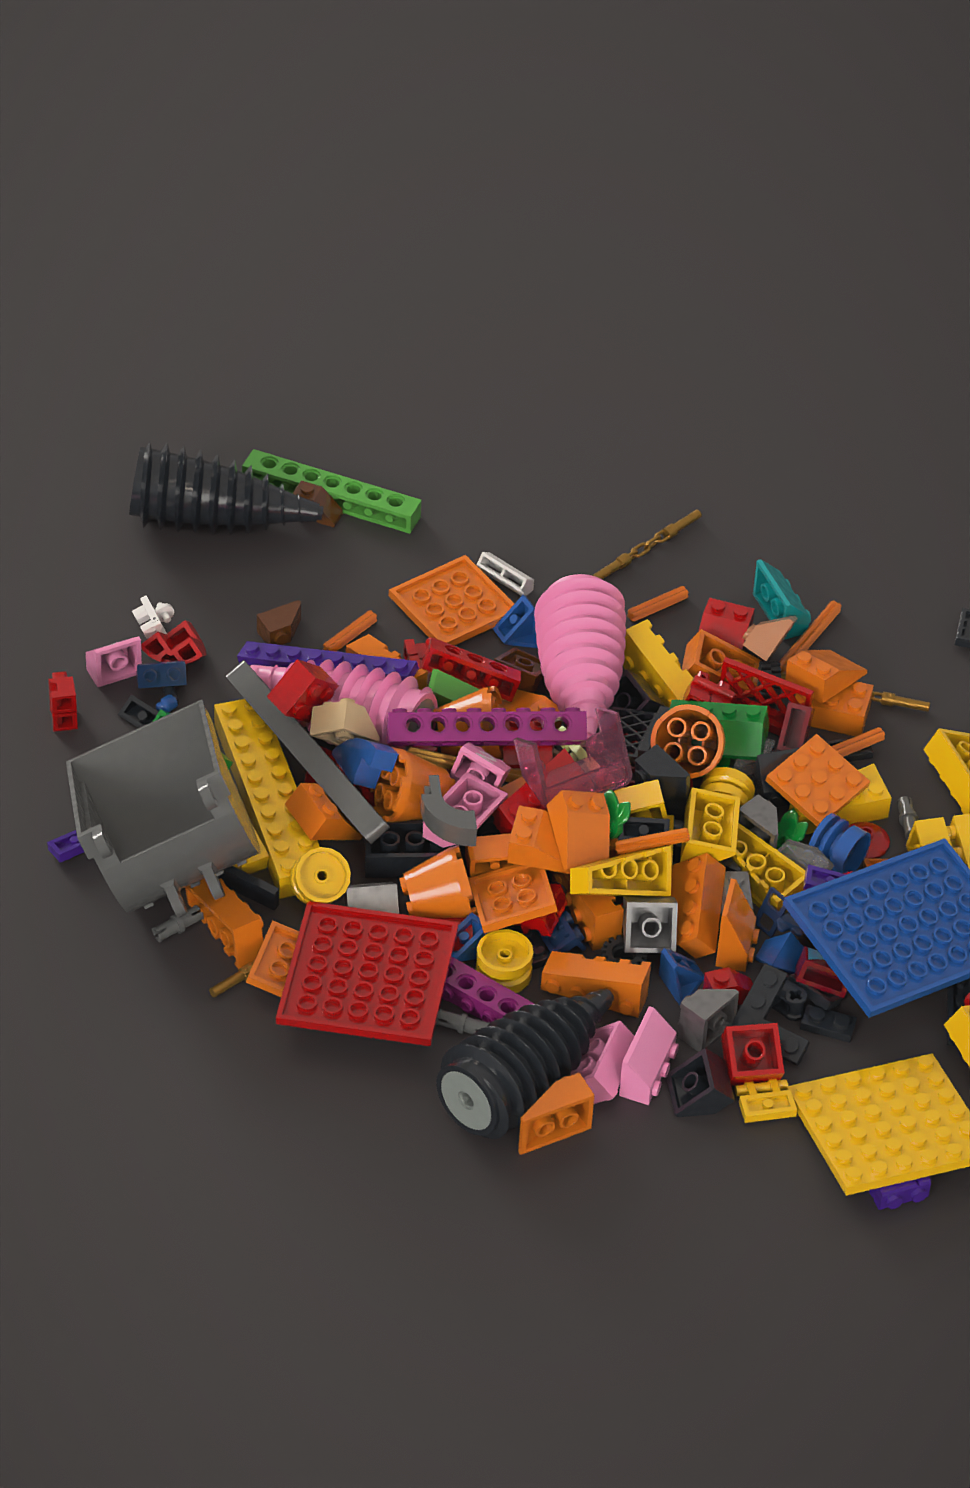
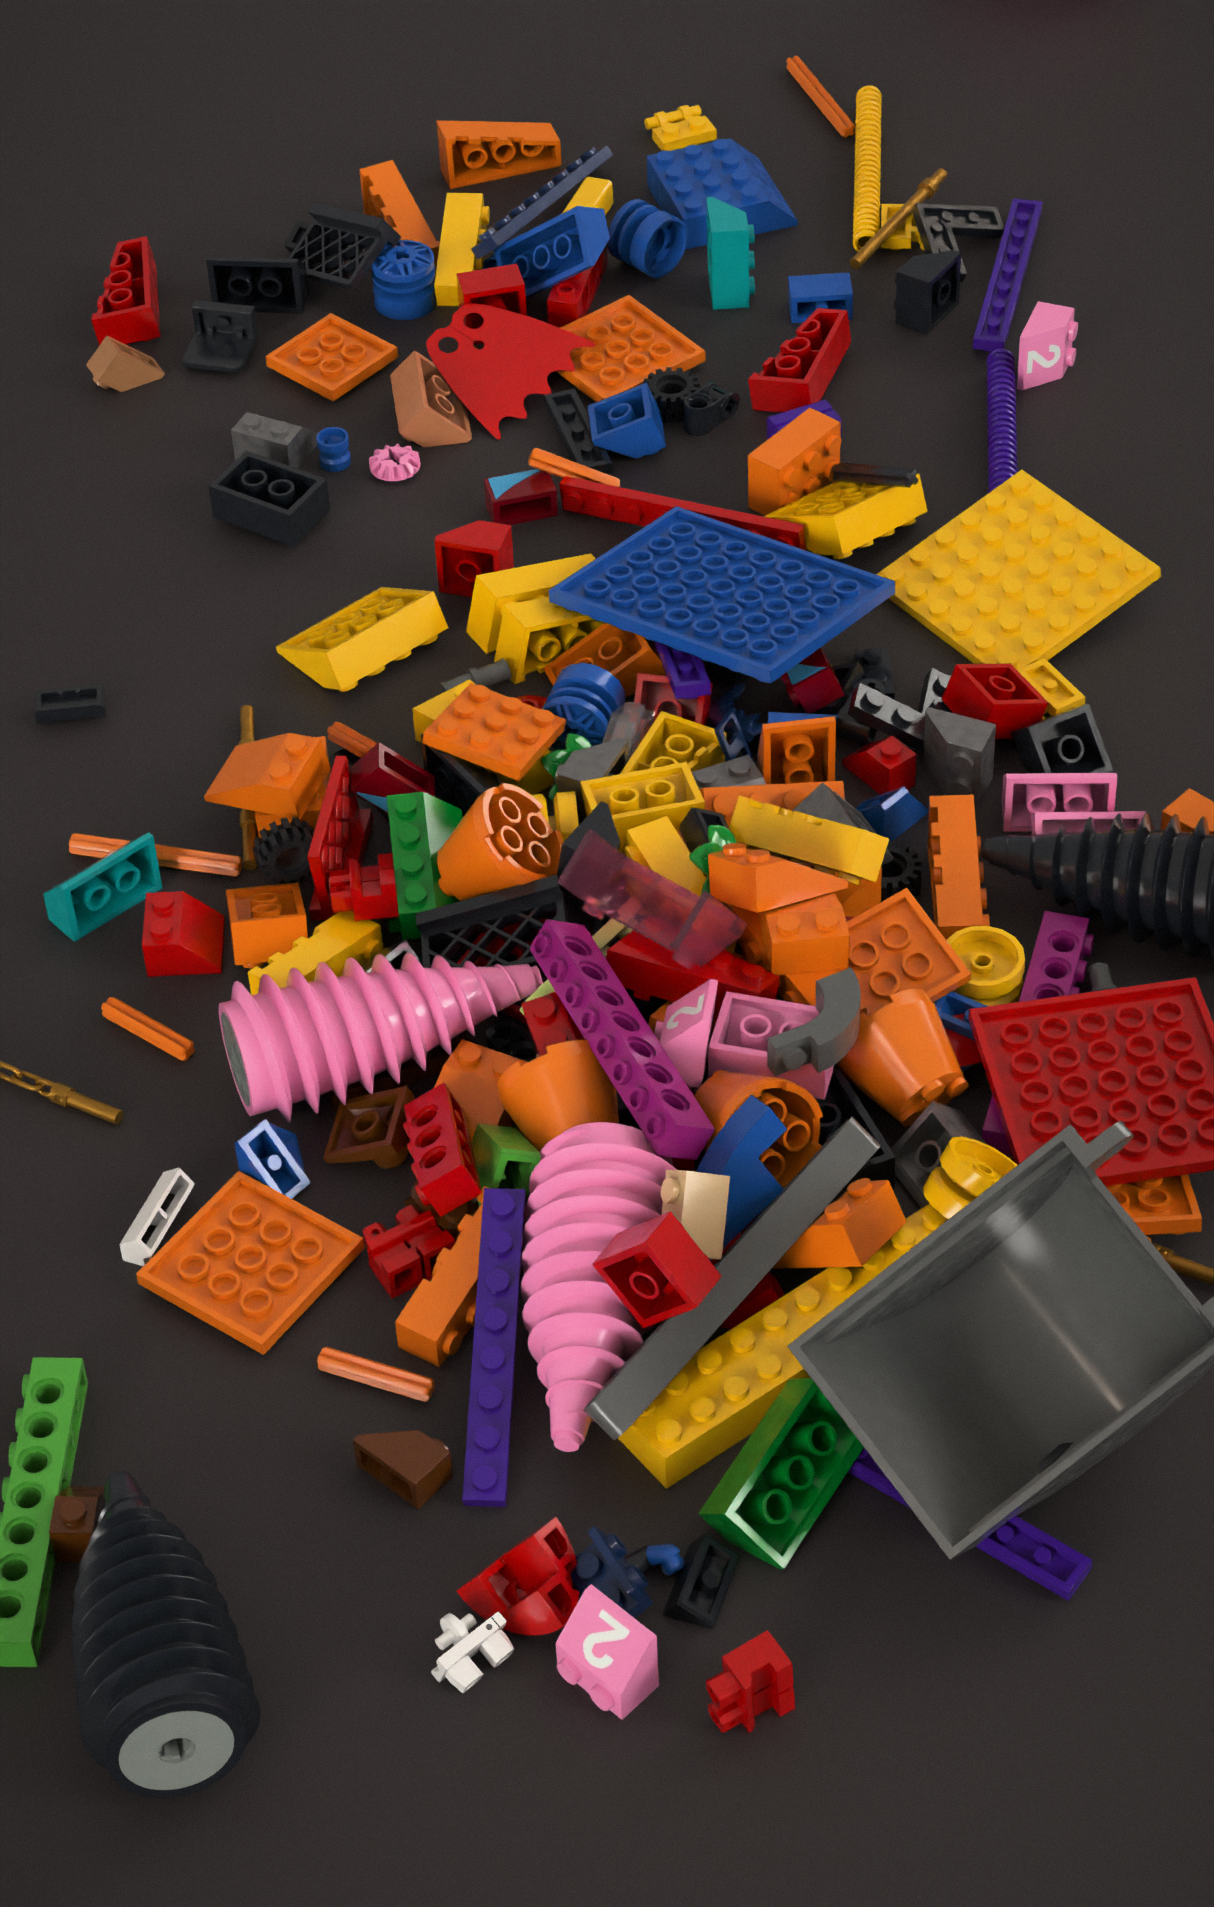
camera: 105 degrees left, 0 degrees up
(652, 841) = (731, 813): orange axle -> none
(767, 636) = (214, 842): nougat slope -> none

